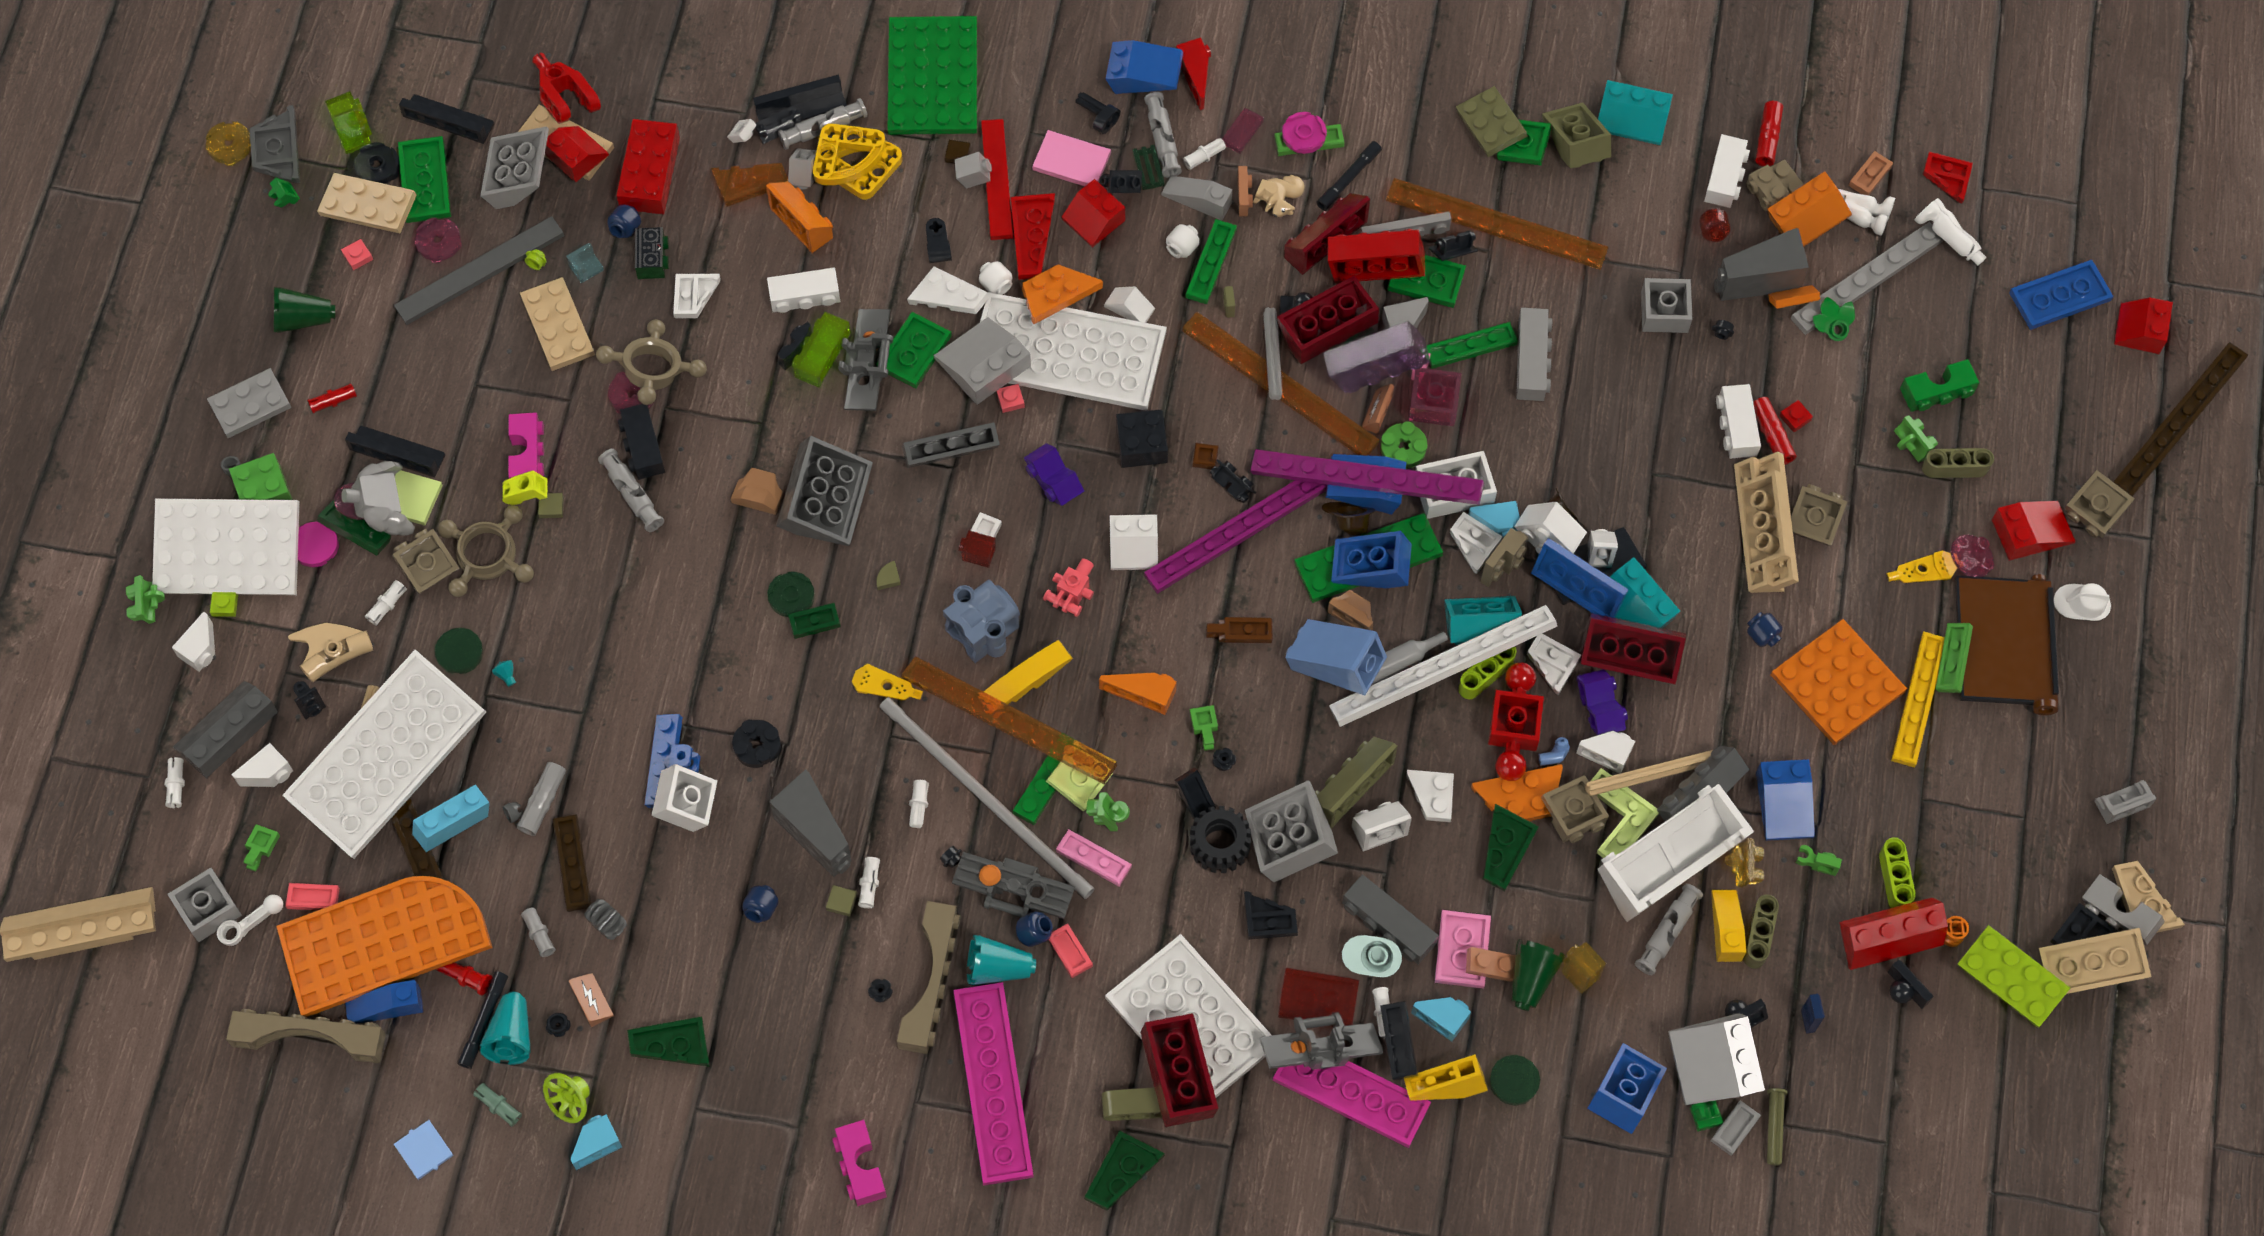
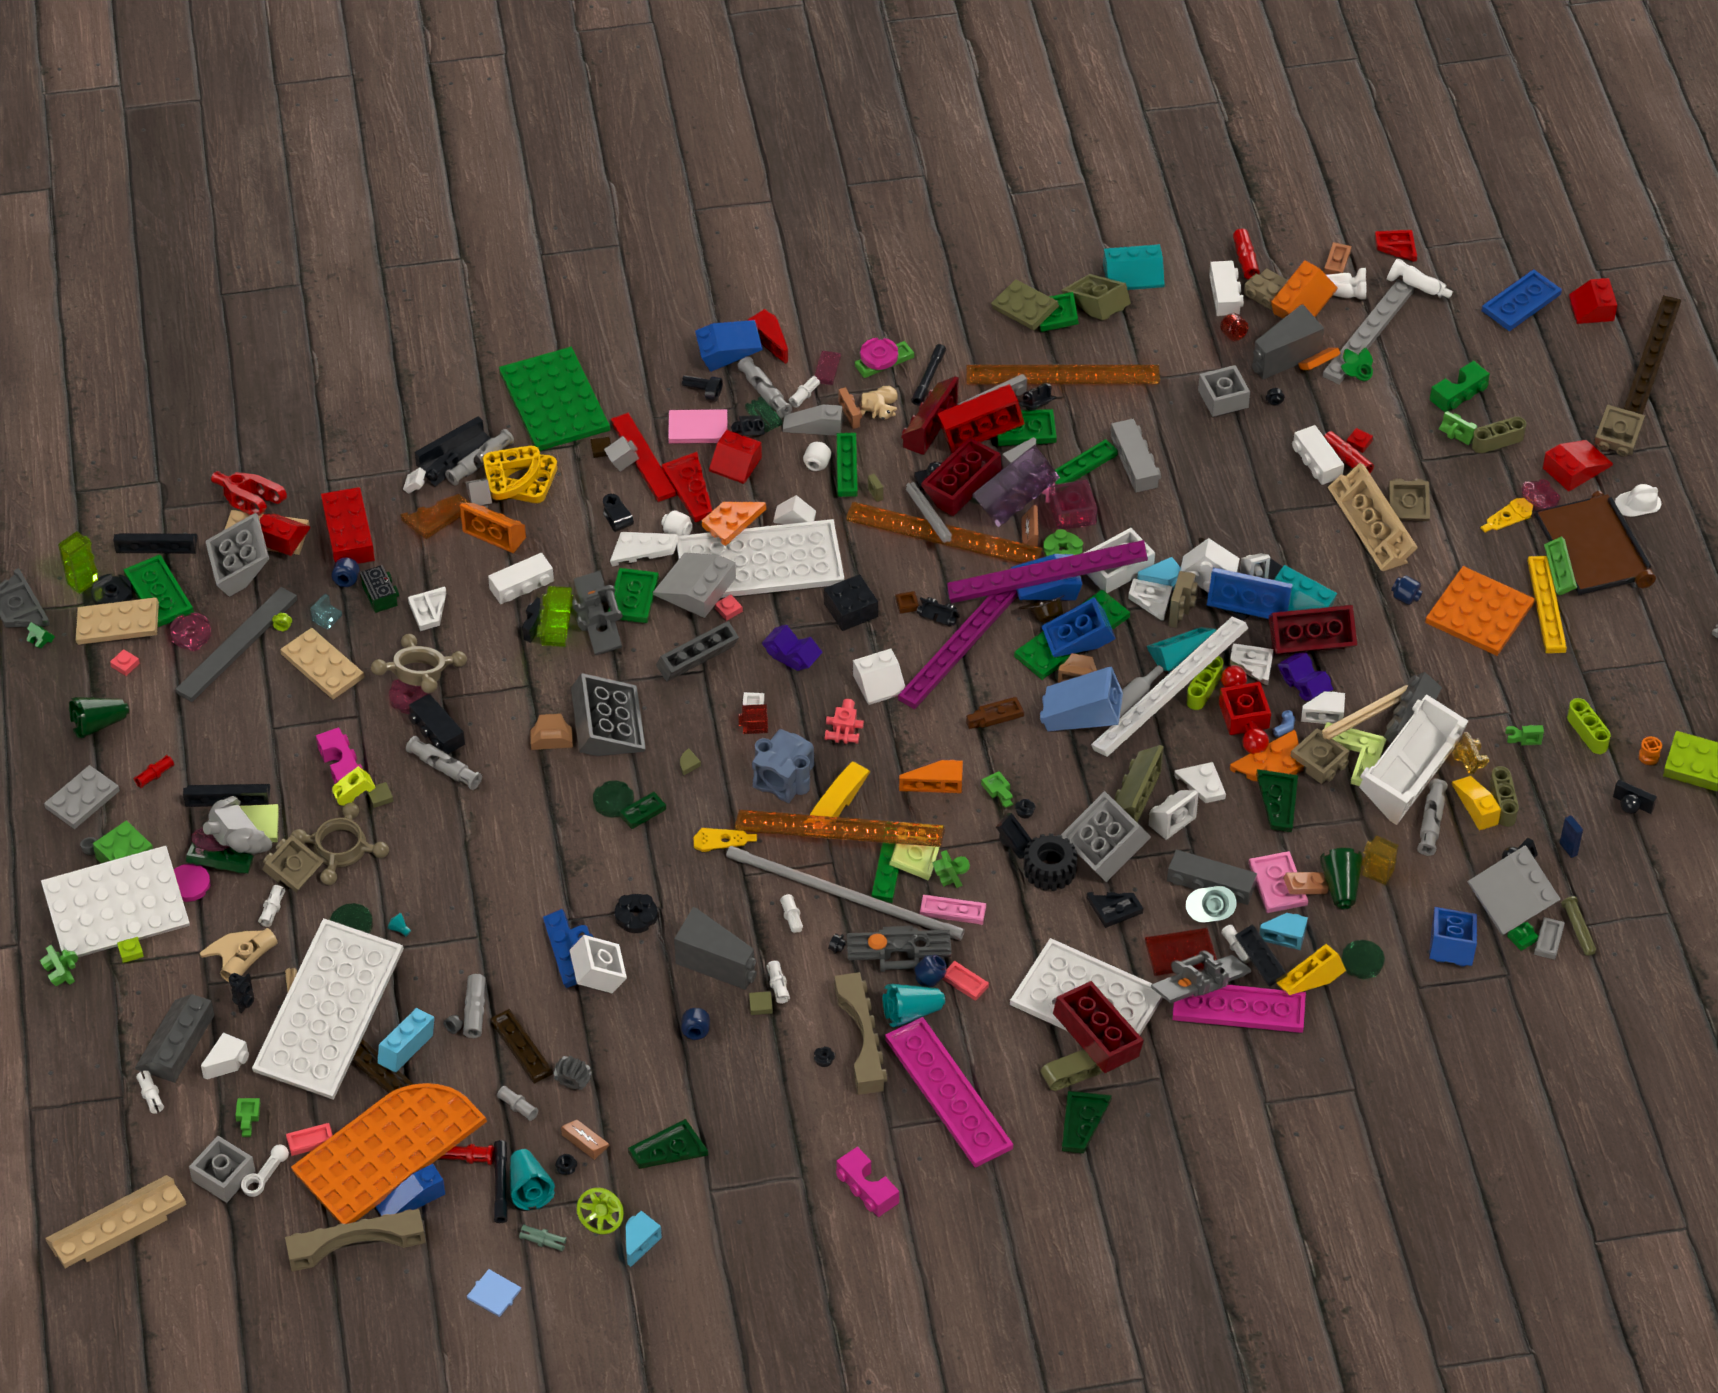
camera: 20 degrees left, 15 degrees down
(197, 643) = (122, 984): white slope -> none
(1786, 799) = (1479, 700): slope -> none
(1894, 932) = (1607, 764): red slope -> none

